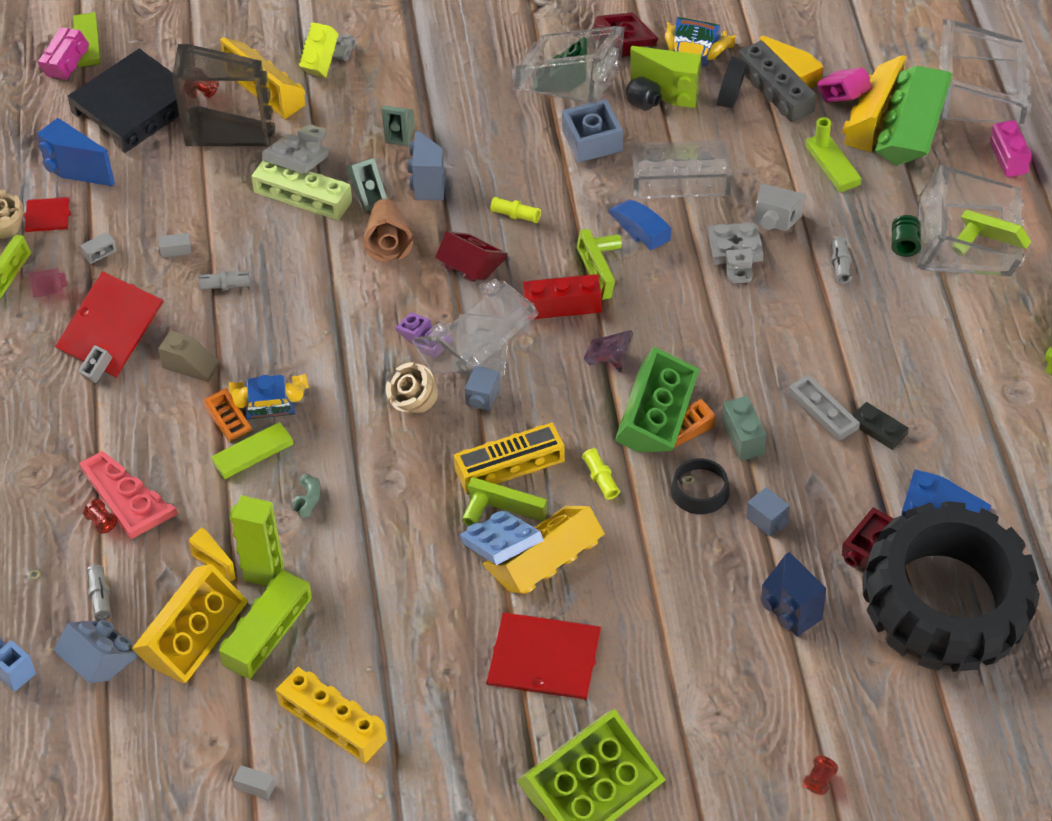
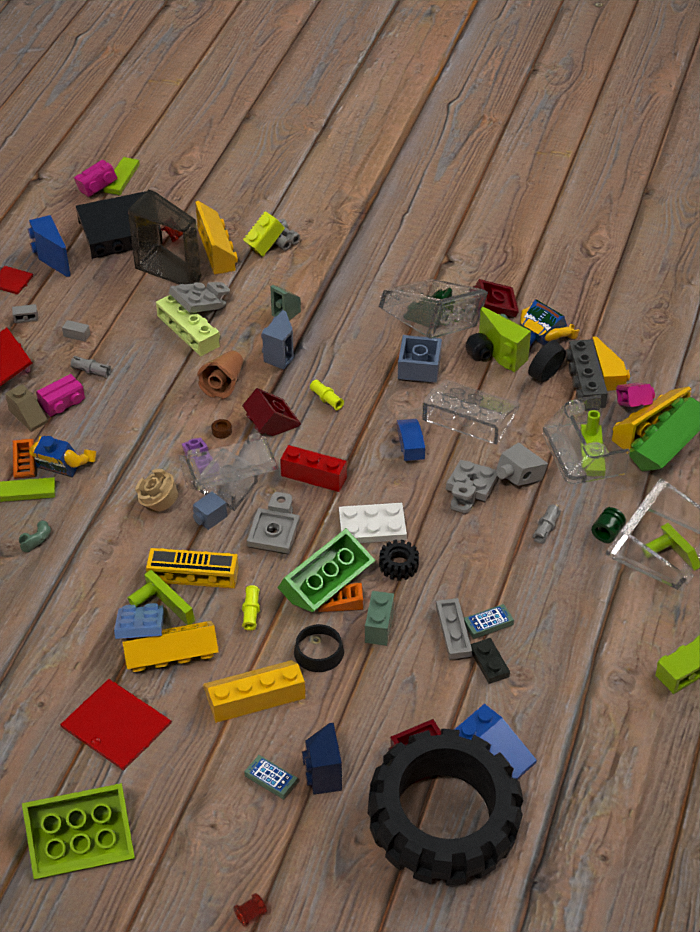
camera: 25 degrees right, 5 degrees down
(218, 325) = (60, 395): none -> dark pink brick
(366, 183) = (234, 335): sand green slope -> none
(425, 293) = (221, 428): none -> reddish brown tile
(561, 365) = (279, 517): none -> light grey plate
(590, 252) = (360, 441): lime piece -> none
(610, 348) = (323, 520): clear purple slope -> none
(665, 328) = (374, 522): none -> white plate
(666, 556) = (255, 690): none -> yellow slope
(722, 348) = (399, 569): none -> black tyre
(745, 637) = (271, 777): none -> tile
(768, 512) = (354, 688): sand blue brick -> none
(817, 170) = (573, 456): none -> clear windscreen
(852, 384) = (488, 621): none -> tile

